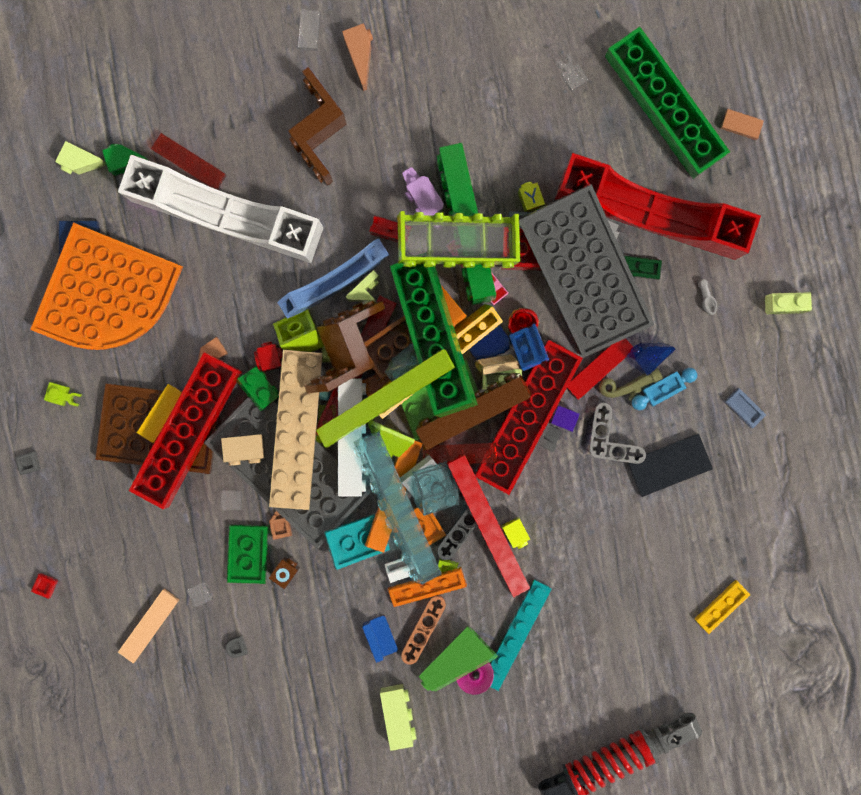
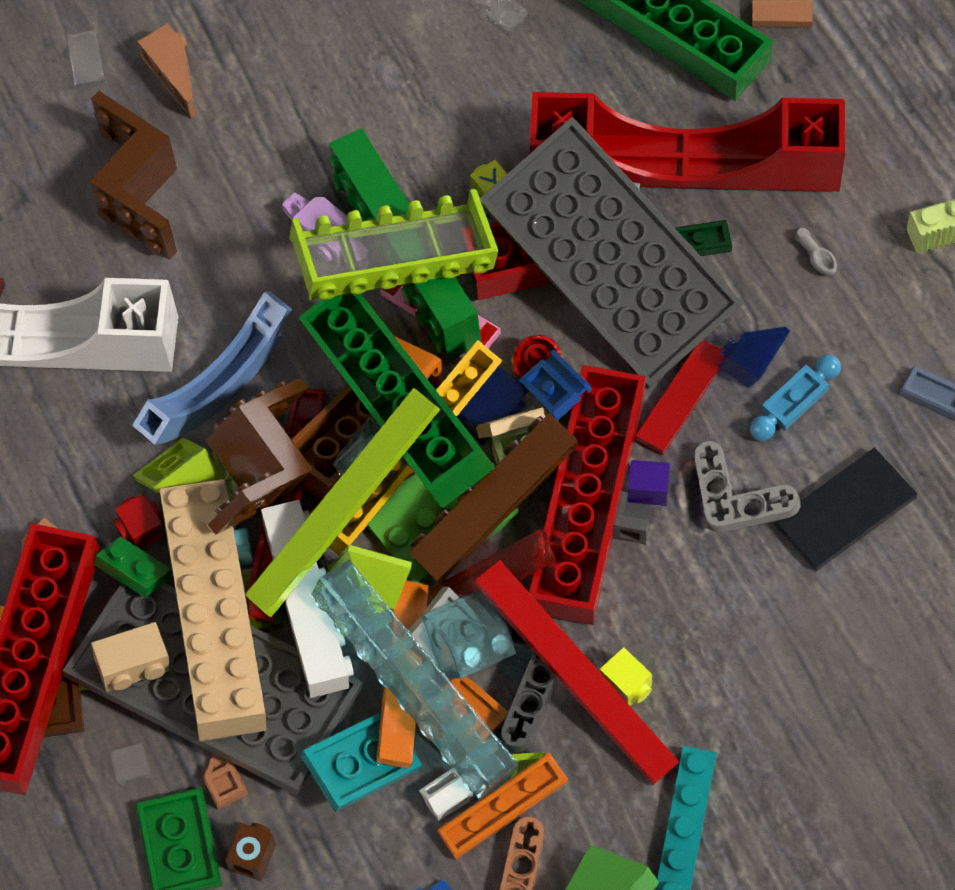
camera: 15 degrees left, 25 degrees down
(360, 293) = (268, 375): yellowish green slope -> none
(384, 229) = (289, 290): red hinge -> none
(633, 386) = (747, 407): olive plant -> none

